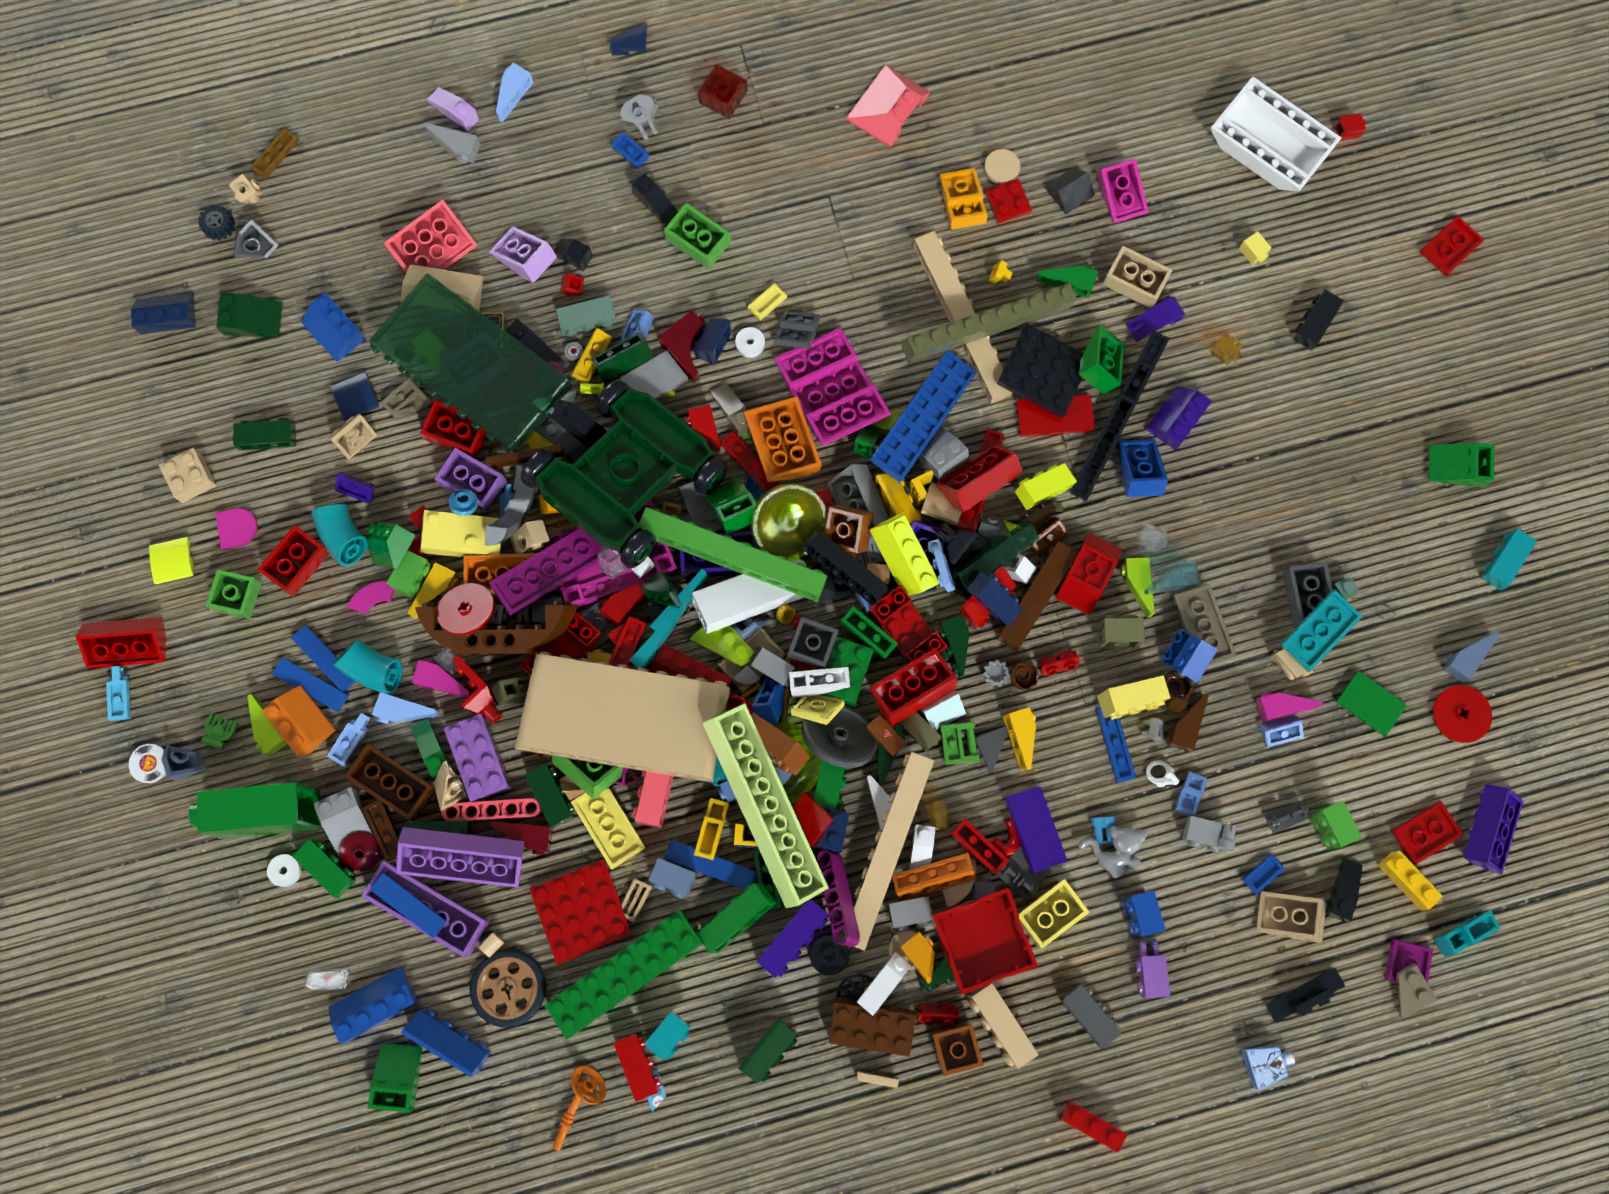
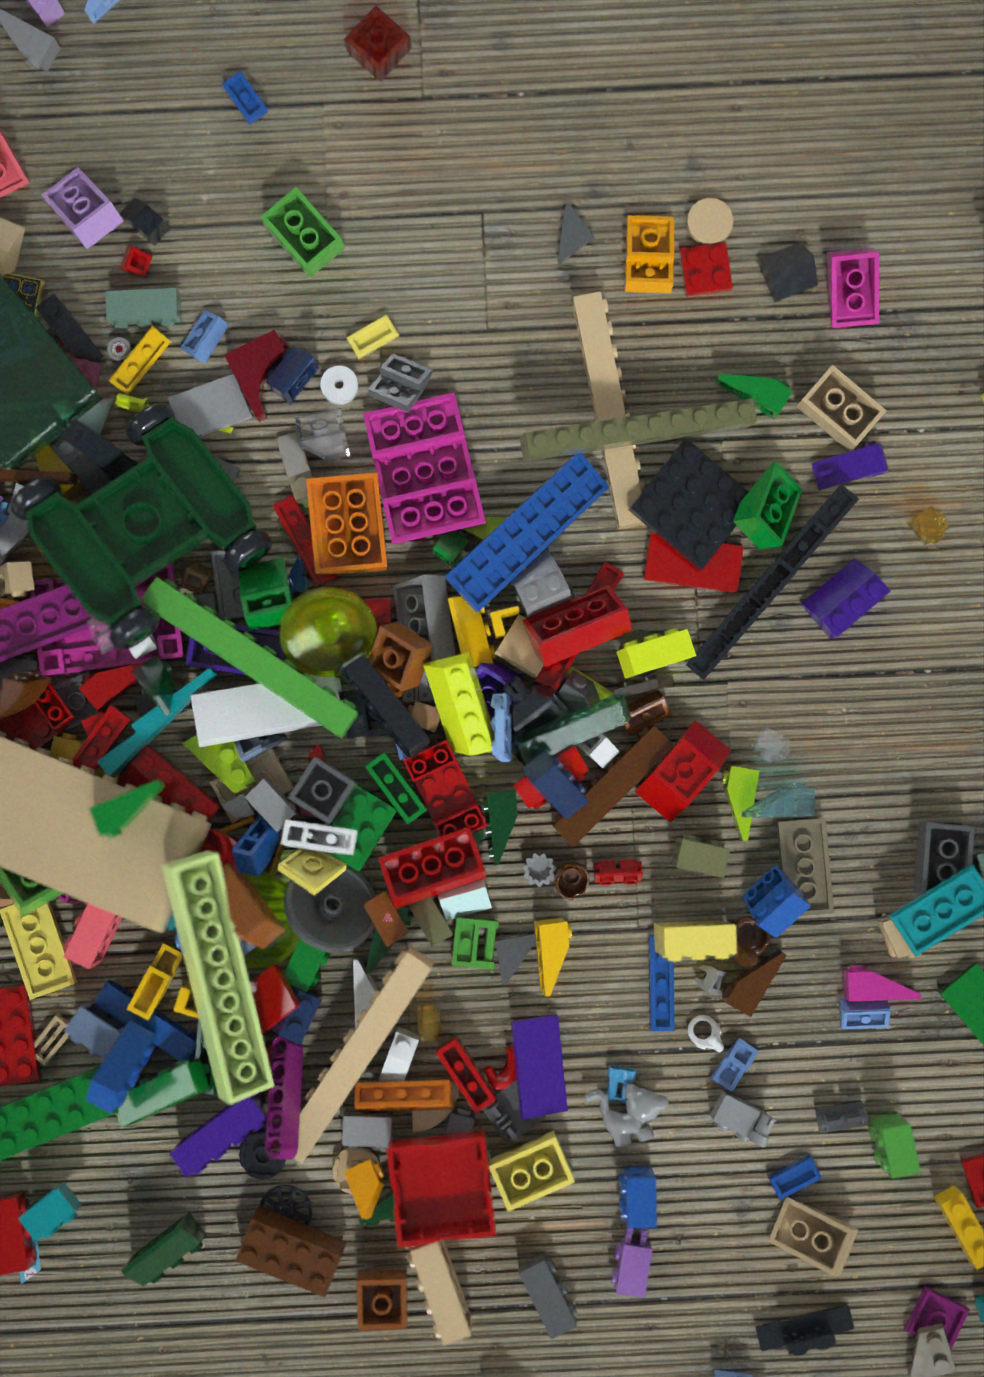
camera: 15 degrees right, 10 degrees up
(622, 357) = (175, 372): dark green brick -> none
(640, 115) = (268, 50): light grey hinge -> none
(653, 199) = (260, 170): black slope -> none
(659, 689) = (121, 811): none -> green slope
(700, 901) = (121, 1068): none -> blue brick
(702, 421) = (256, 483): red slope -> none
(748, 379) = (323, 434): none -> clear slope
(785, 614) = (303, 740): yellow tile -> none
(877, 1079) = (284, 1310): tan tile -> none
(884, 983) = (314, 1208): white slope -> none
(887, 105) = (585, 106): coral slope -> none
(902, 197) = (574, 234): none -> dark grey tile
(946, 1016) = (381, 1255): red hinge -> none
(1000, 273) = (670, 364): yellow tile -> none
(1142, 468) = (781, 654): blue slope -> none
(1345, 891) = (885, 1221): black slope -> none

